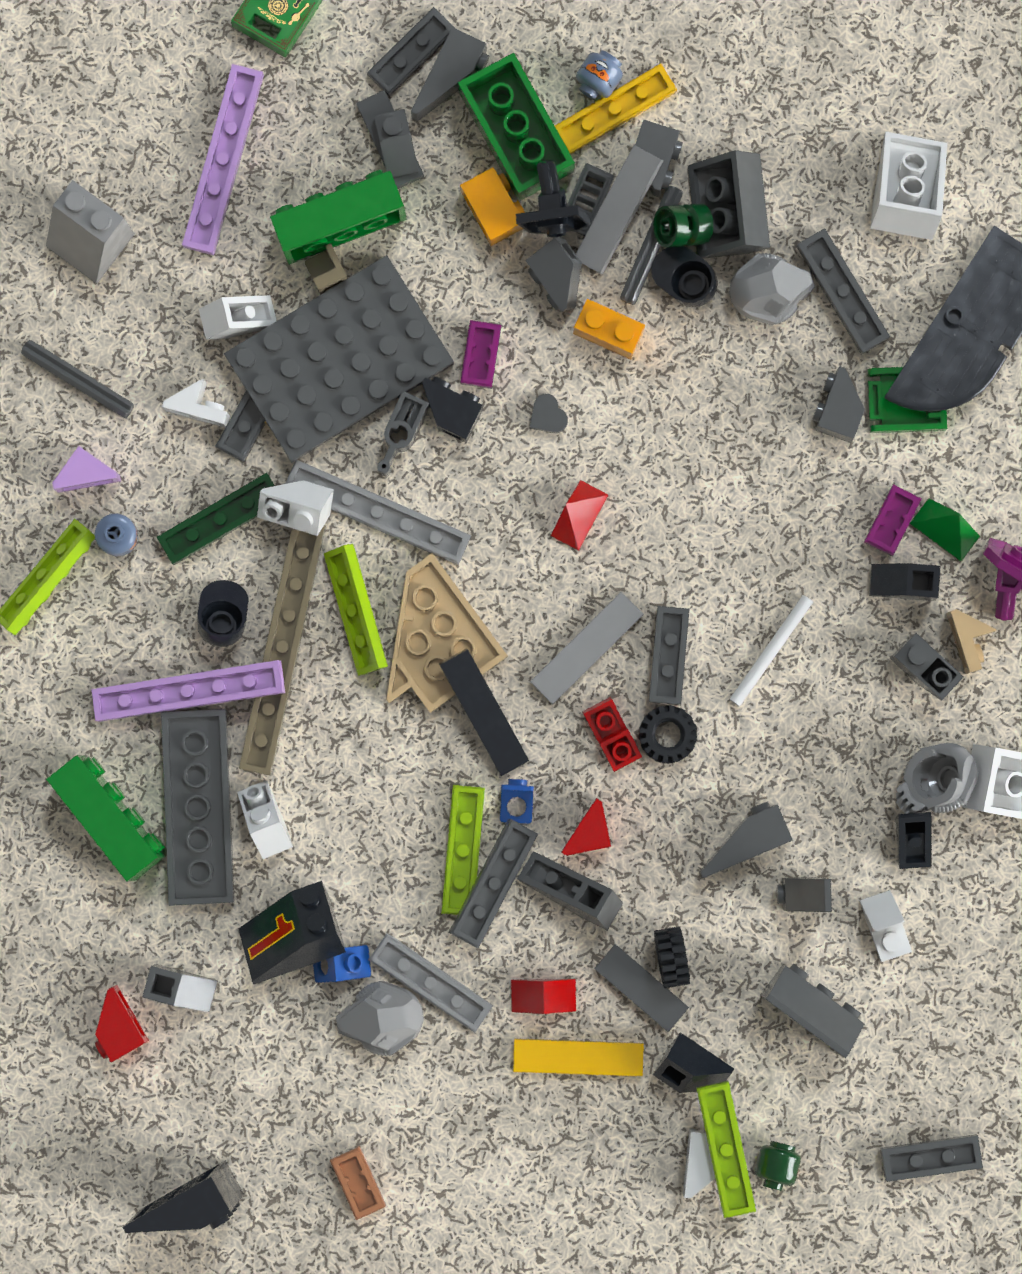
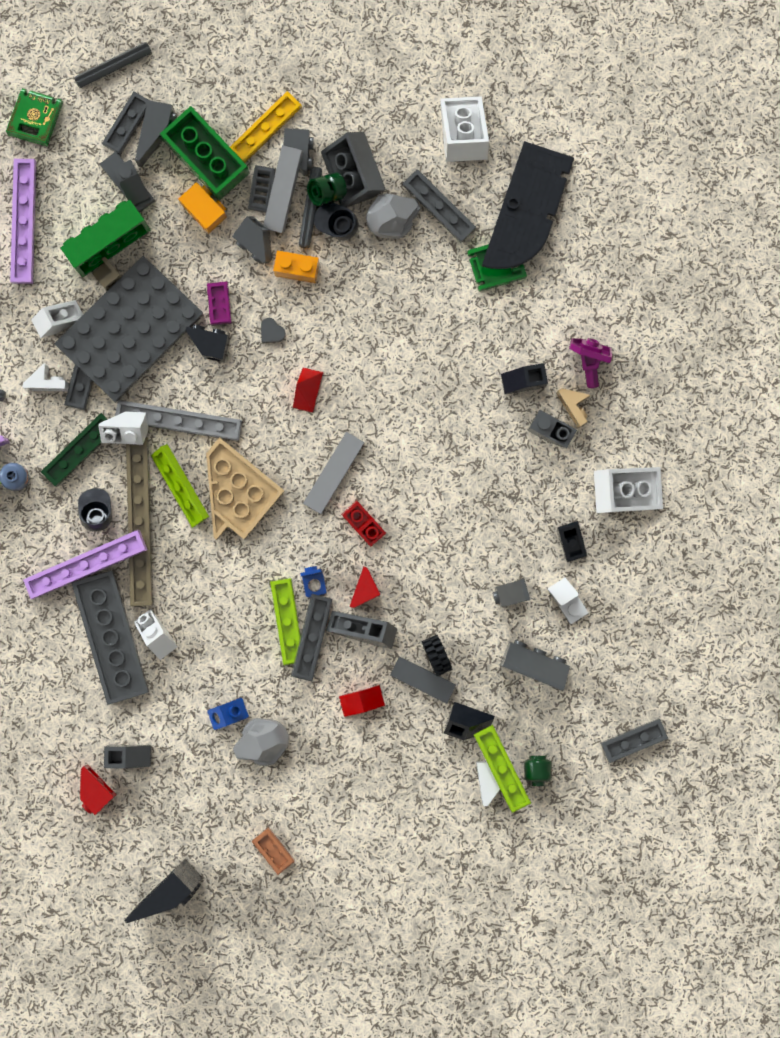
camera: 20 degrees left, 0 degrees up
(106, 817) = (52, 658): green brick -> none
(292, 934) = (190, 702): black slope -> none
(397, 422) = (181, 354): dark grey piece -> none
(431, 982) = (287, 711): light grey tile -> none
(484, 712) = (278, 530): black tile -> none
(553, 215) = (242, 202): black piece -> none
(578, 1057) = (393, 734): yellow tile -> none
(599, 75) = (249, 107): sand blue head -> none
(669, 655) = (387, 464): dark grey plate -> none
(687, 729) = (399, 501): black tyre -> none
(752, 837) = (470, 564): dark grey slope -> none
(771, 650) = (451, 444): white bar -> none
(842, 408) = (457, 280): dark grey slope -> none
(892, 520) = (507, 342): magenta plate -> none
(937, 779) = (577, 499): light grey helmet -> none
(945, 528) = (542, 339): green slope -> none

